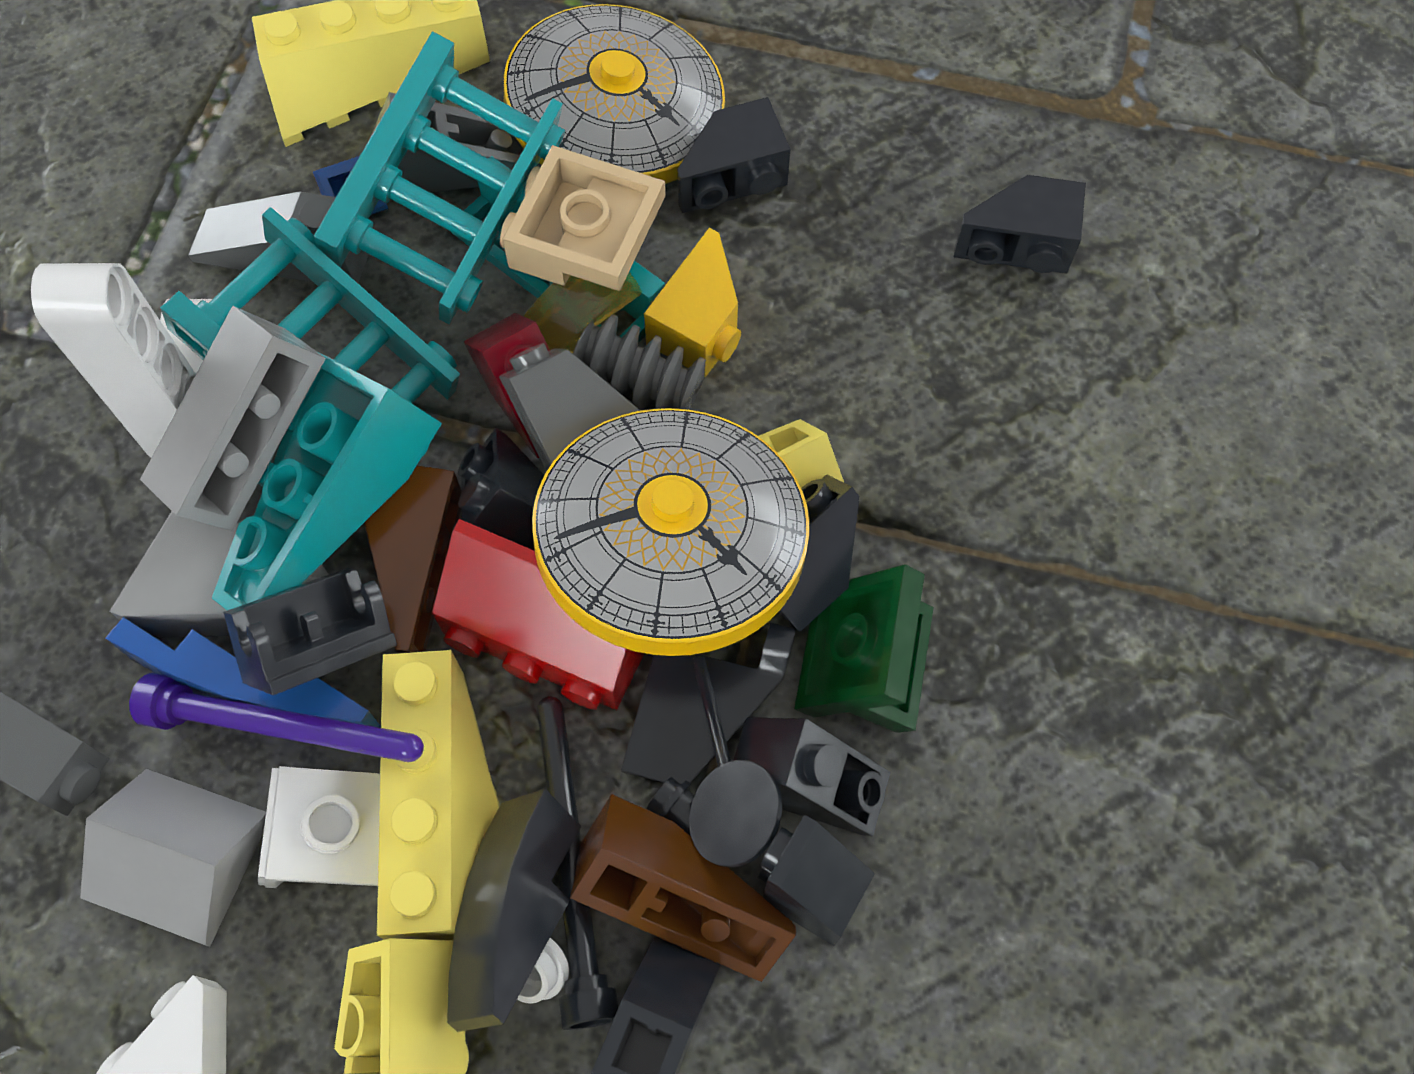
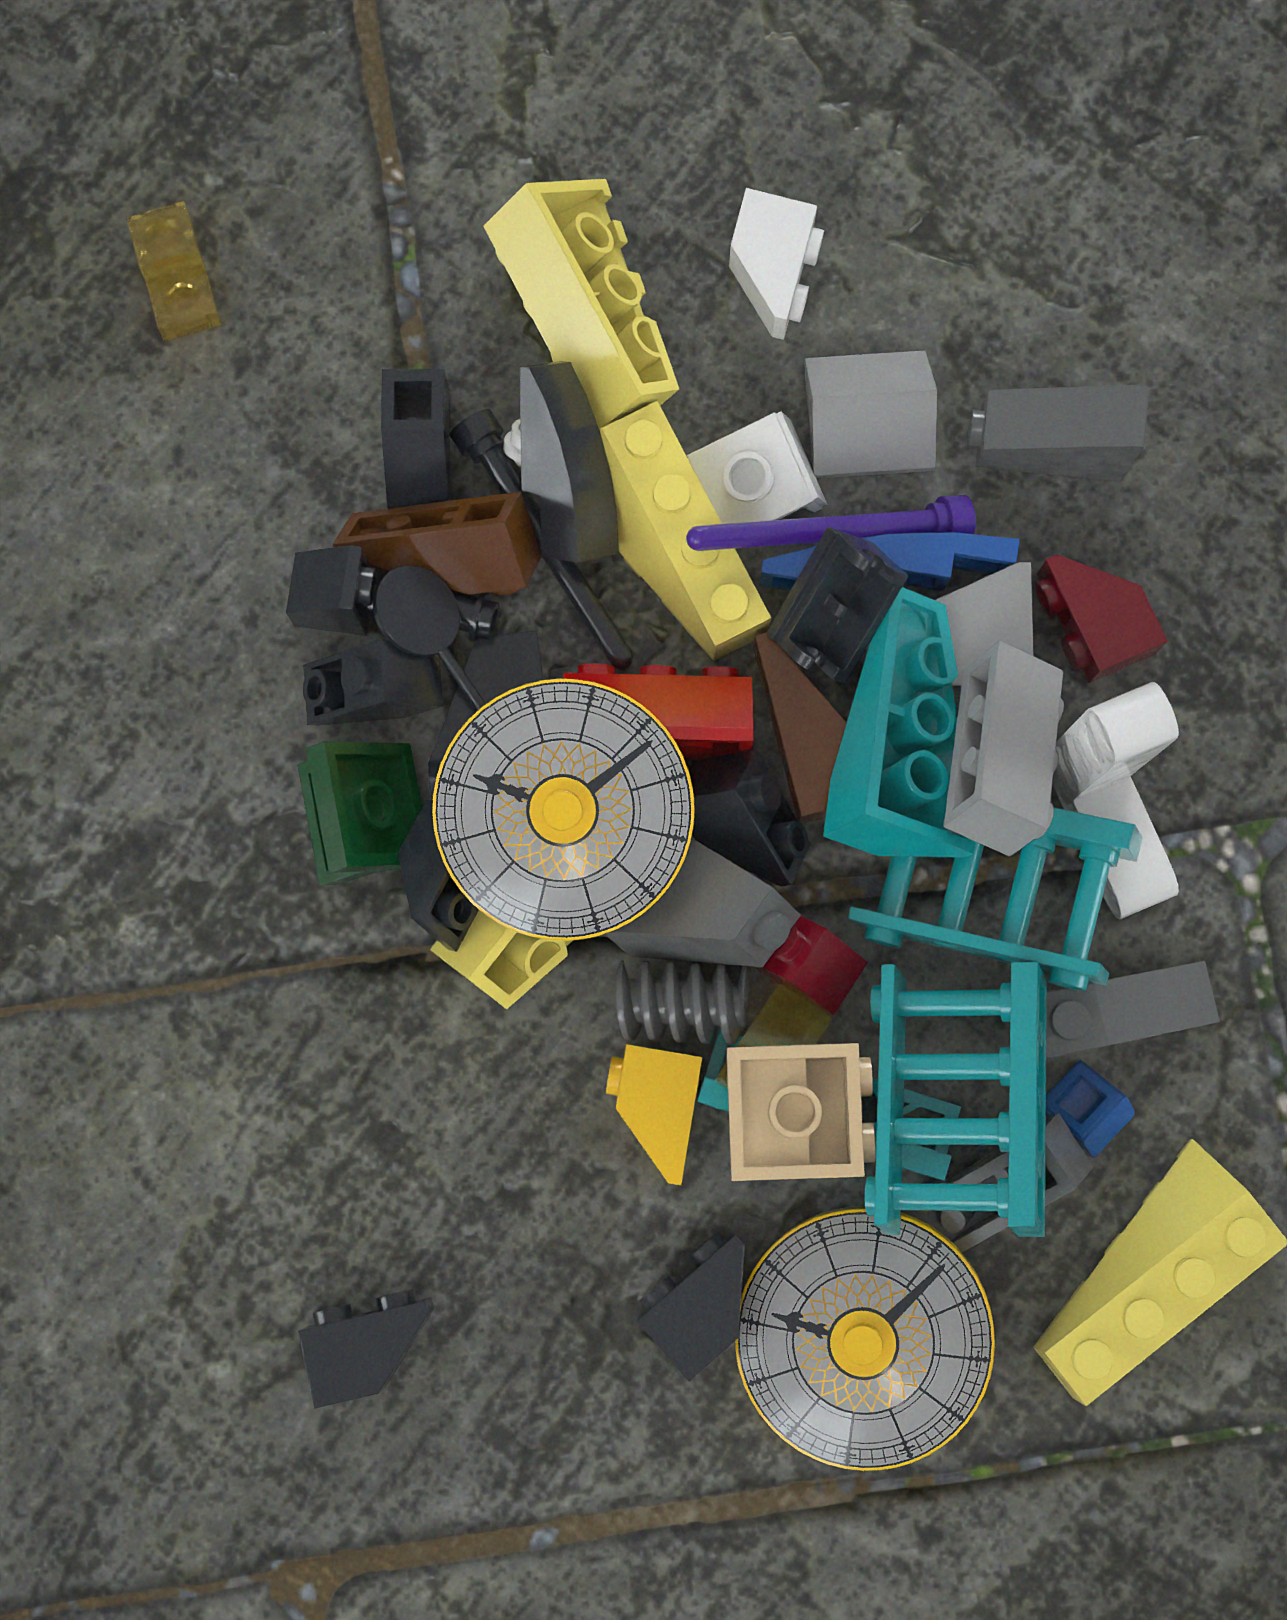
camera: 160 degrees right, 15 degrees up
(85, 545) = (1102, 615): none -> dark red slope

